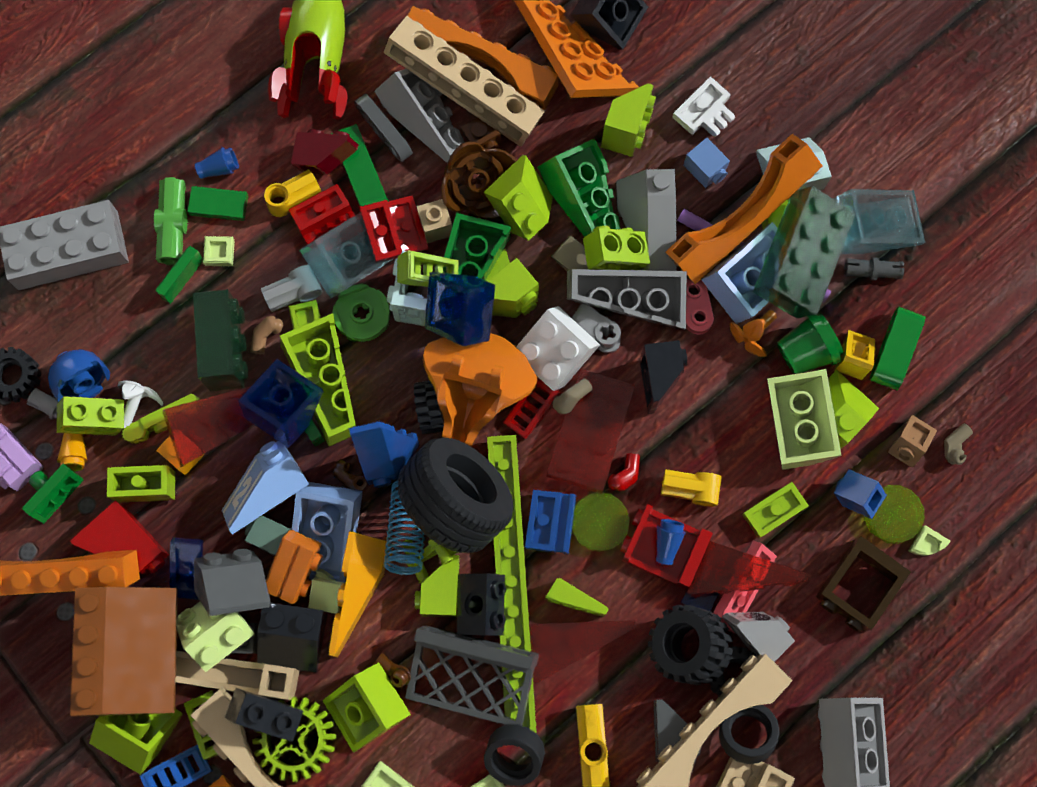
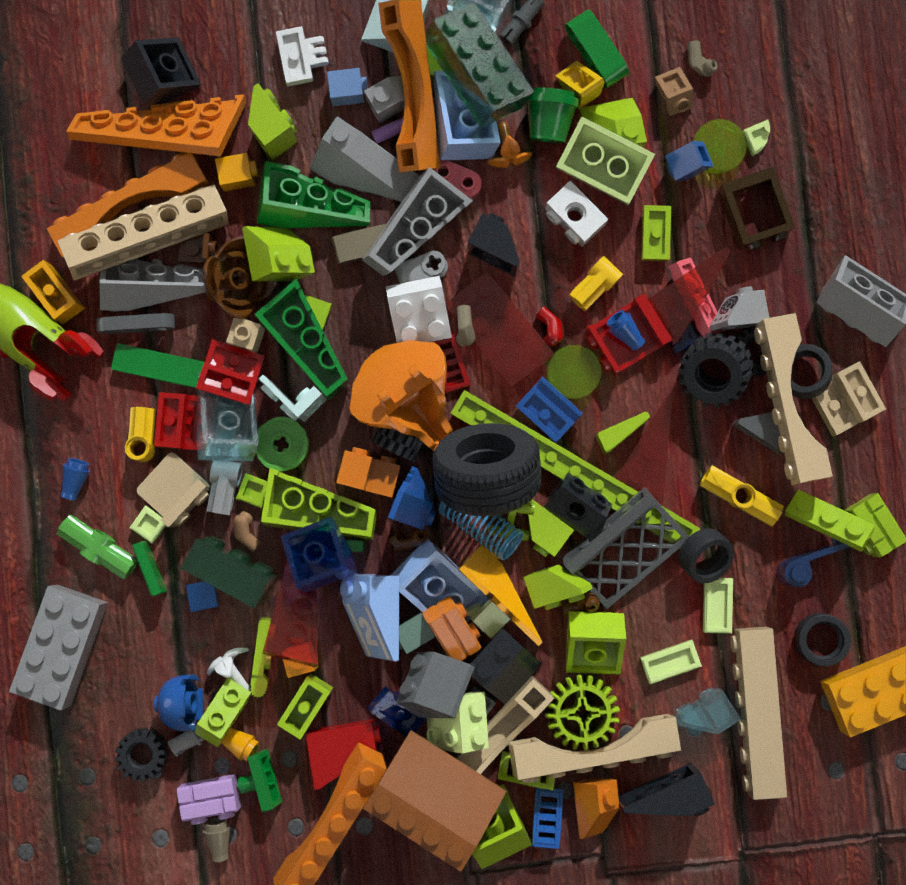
camera: 50 degrees left, 10 degrees up
(182, 334) = (202, 596): none -> blue tile
(217, 203) = (107, 499): green tile -> none
(261, 251) = (174, 490): none -> tan bracket
(264, 714) = (555, 724): black brick -> none
(321, 151) = (123, 388): dark red slope -> none
(363, 45) = (53, 292): none -> light orange brick
(382, 396) = (369, 474): none -> orange brick
(394, 631) = (553, 585): none -> lime slope
(410, 267) = (281, 384): lime slope -> none
(459, 307) = (340, 365): clear blue slope -> none
(514, 291) = (347, 317): lime slope -> none
(569, 123) = (236, 172): none -> light orange brick
(616, 249) = (371, 209): lime brick -> none
(720, 200) = (386, 98): none -> light grey slope
(749, 413) = (572, 199): none -> white brick

